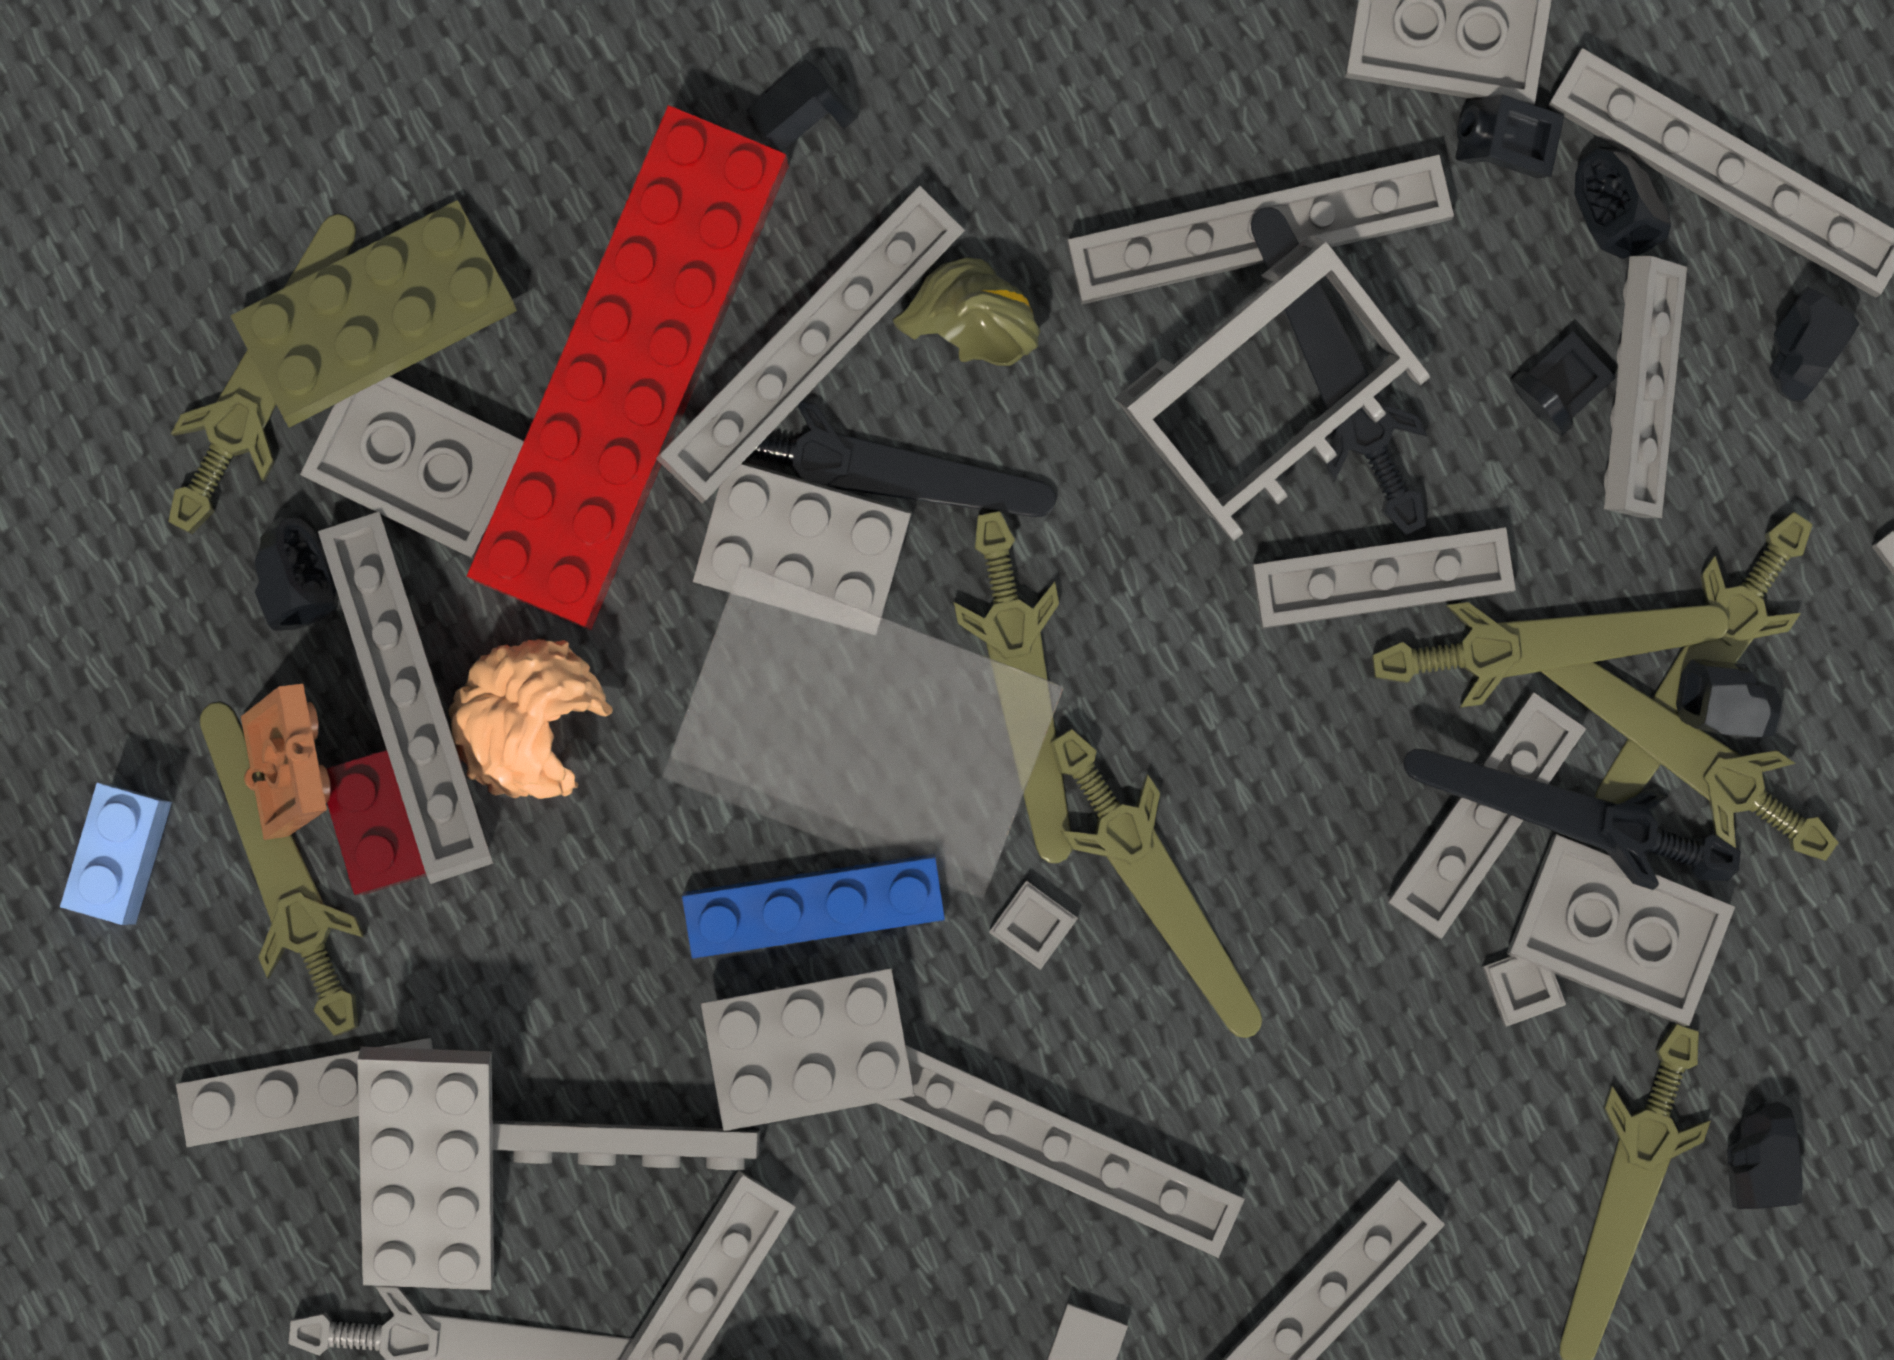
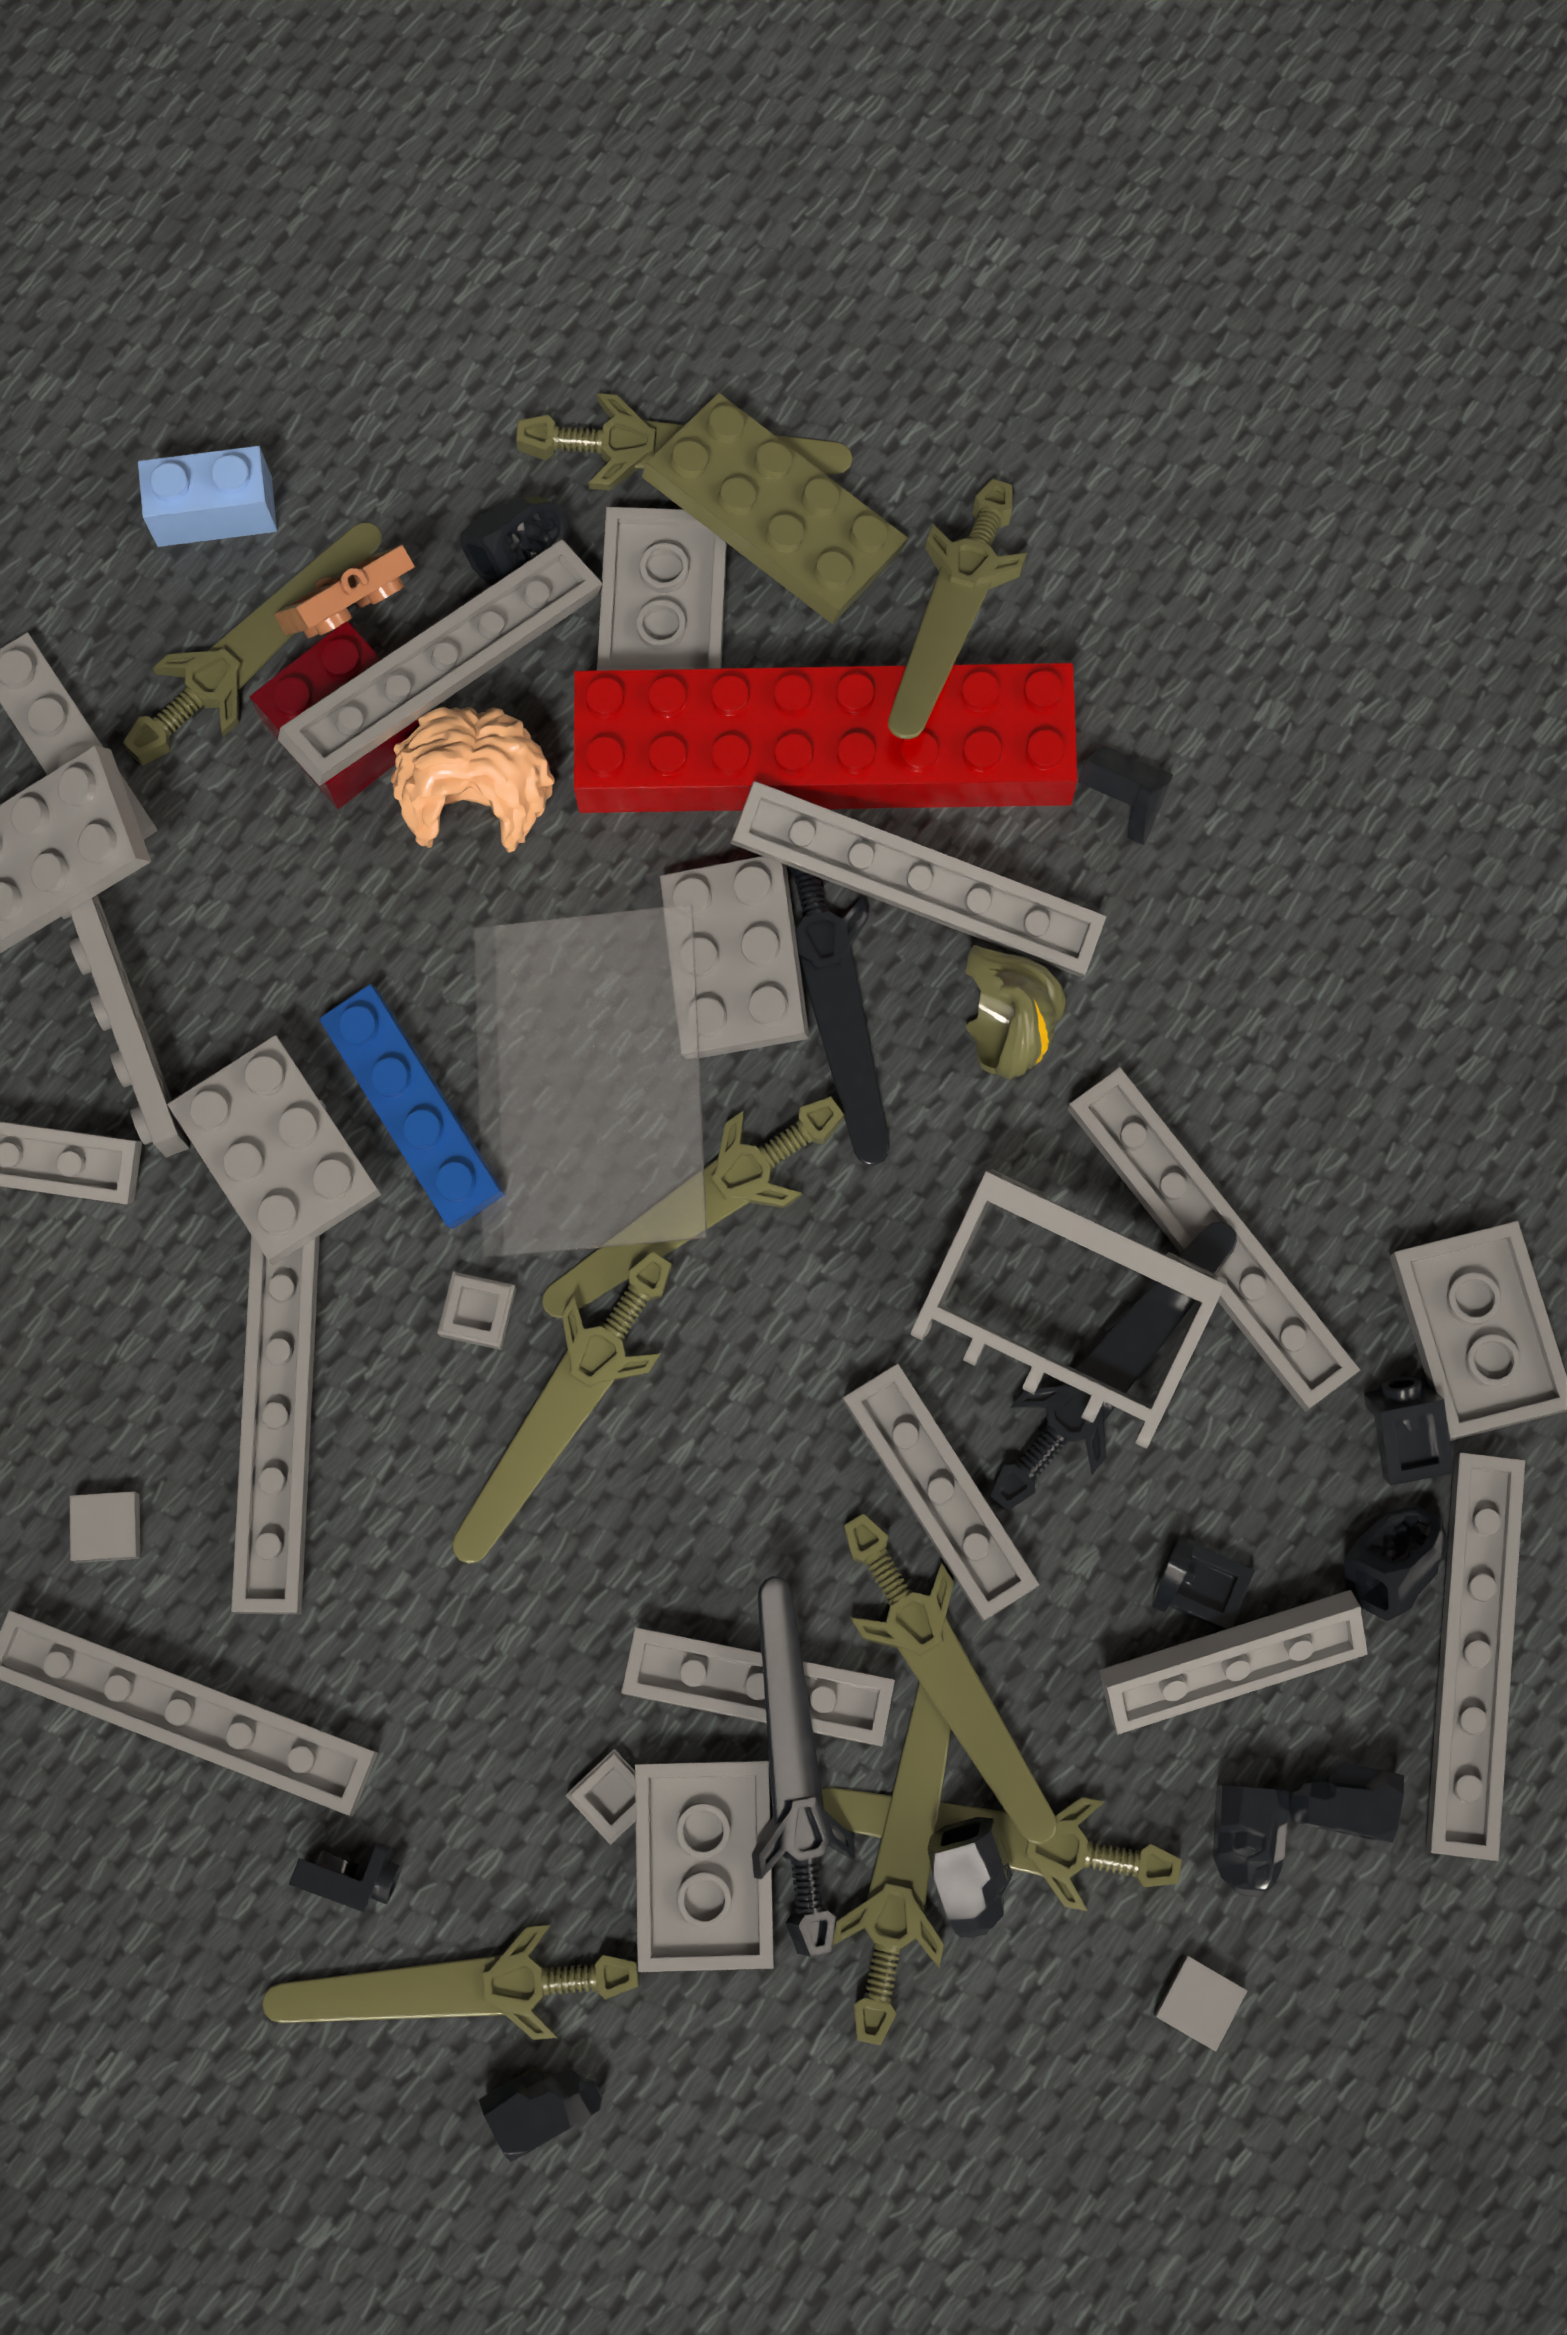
camera: 70 degrees right, 10 degrees down
(526, 161) = (964, 577): none -> olive sword
(1498, 1258) = (335, 1880): none -> black bracket
(1798, 443) = (1250, 1837): none -> black rock

